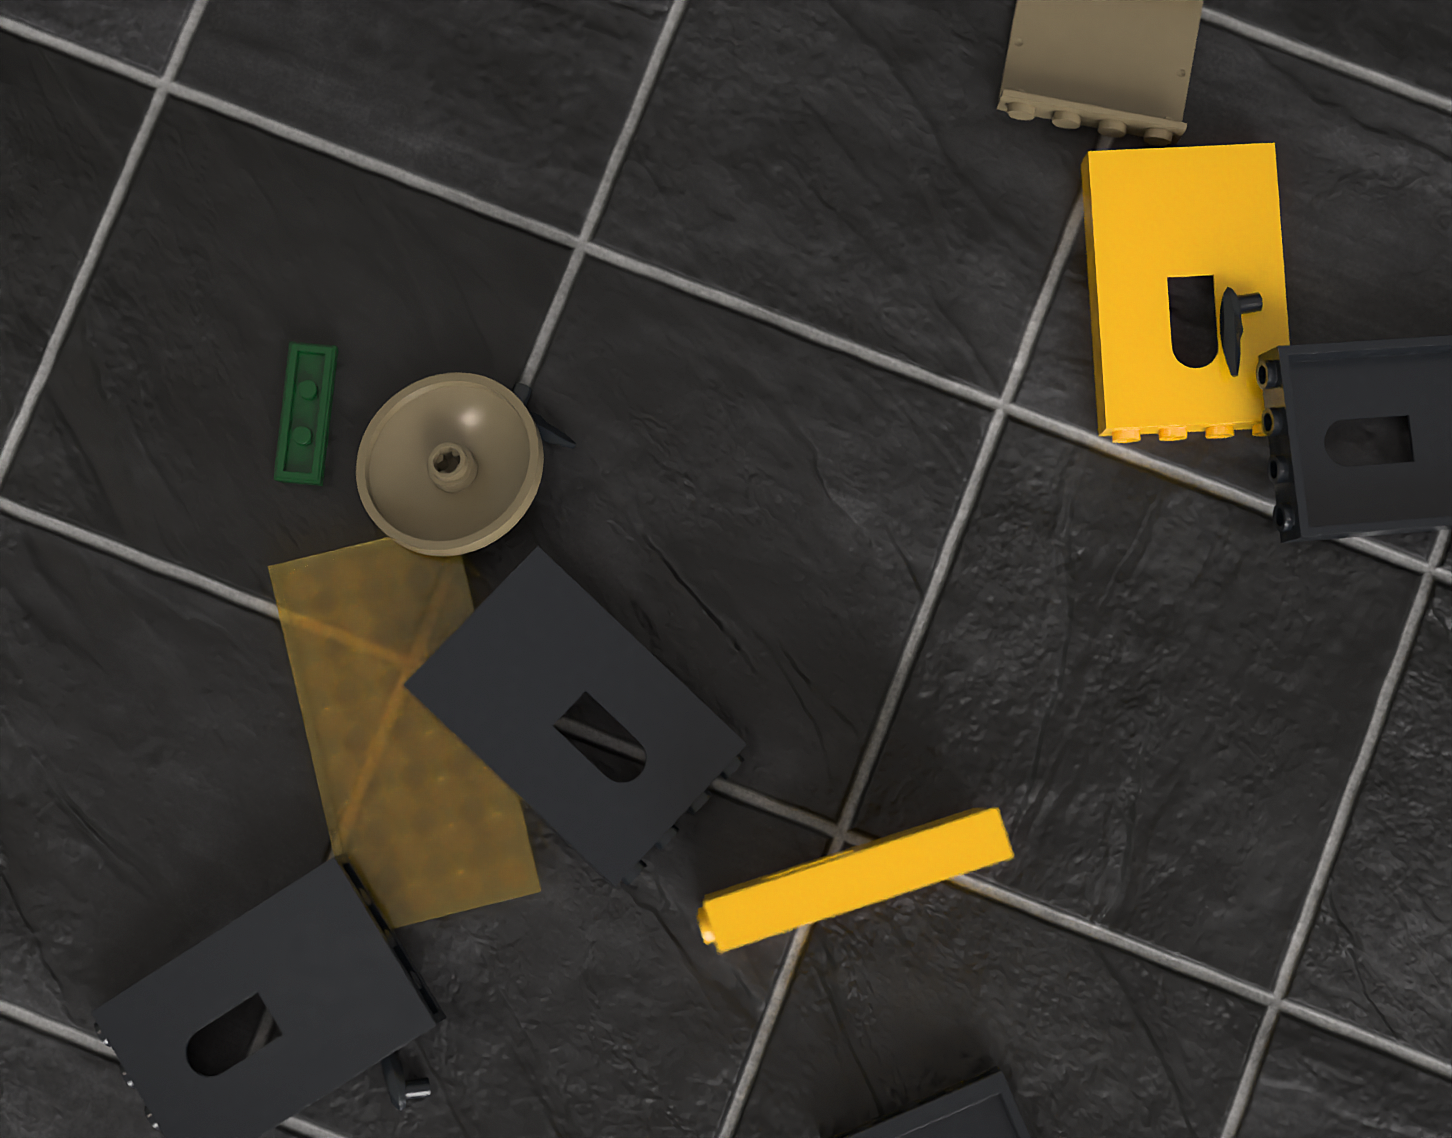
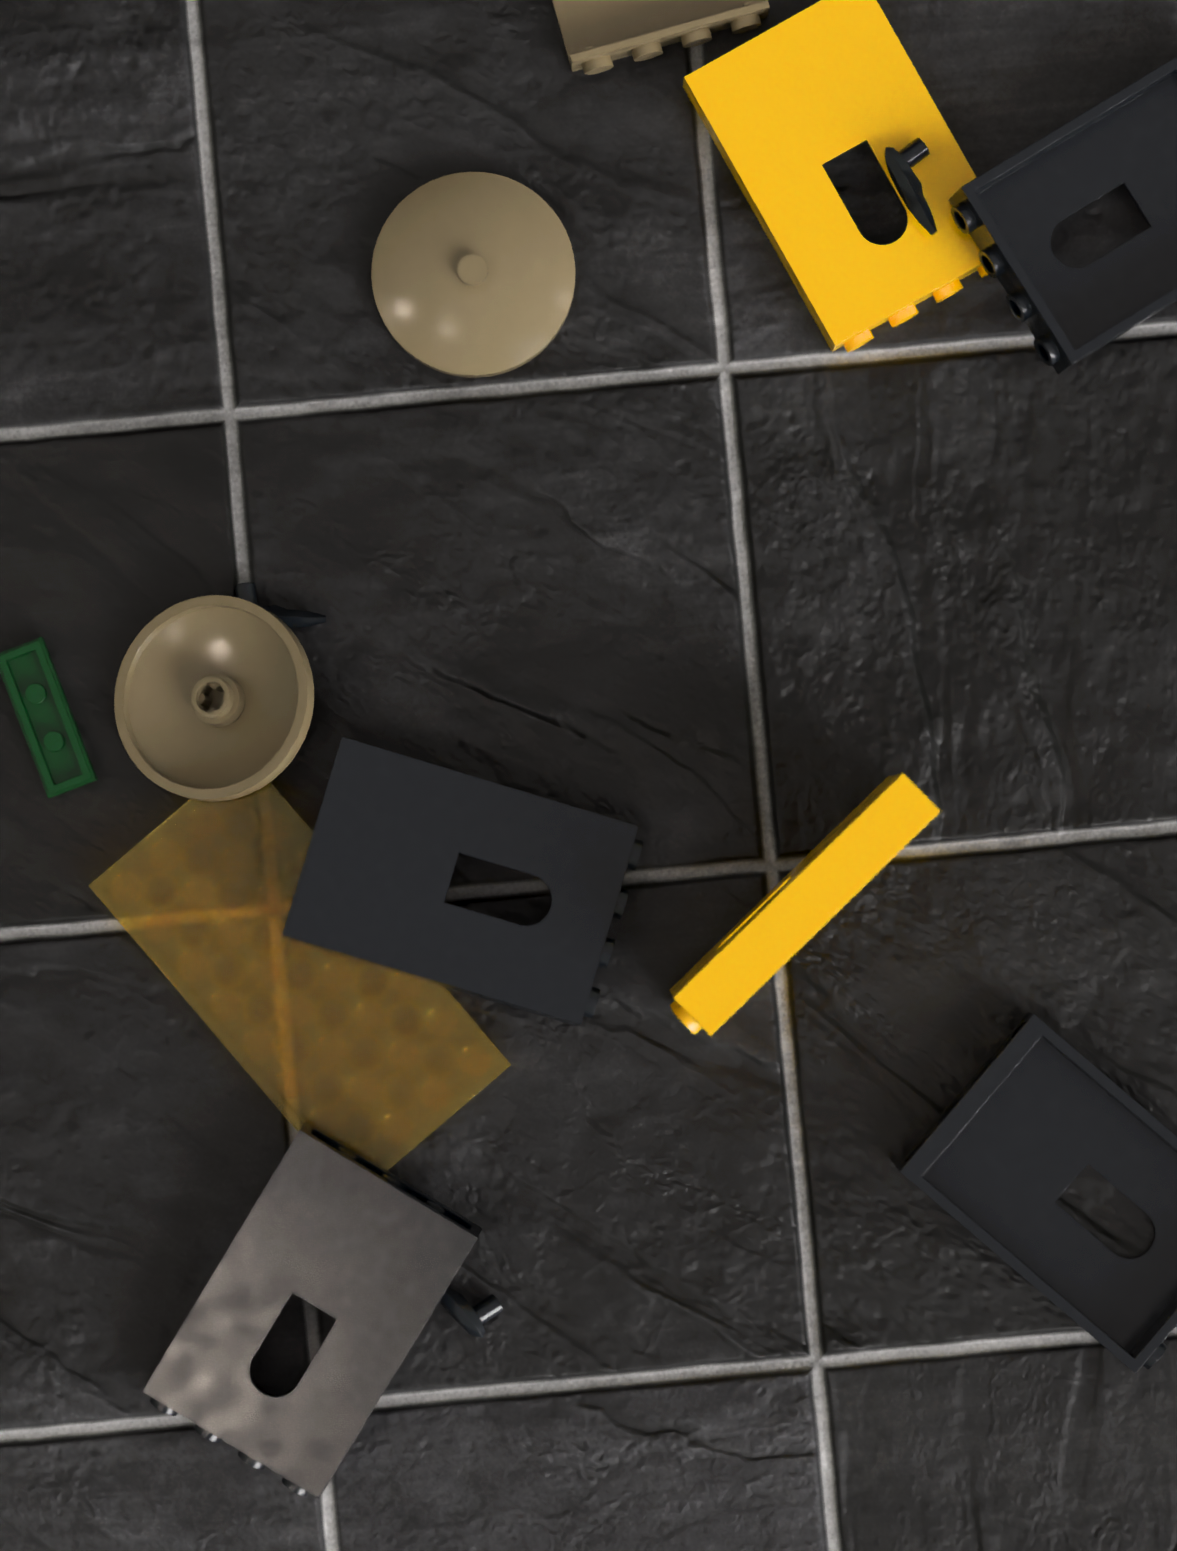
camera: 20 degrees left, 5 degrees up
(836, 229) = (473, 274): none -> dark tan dish

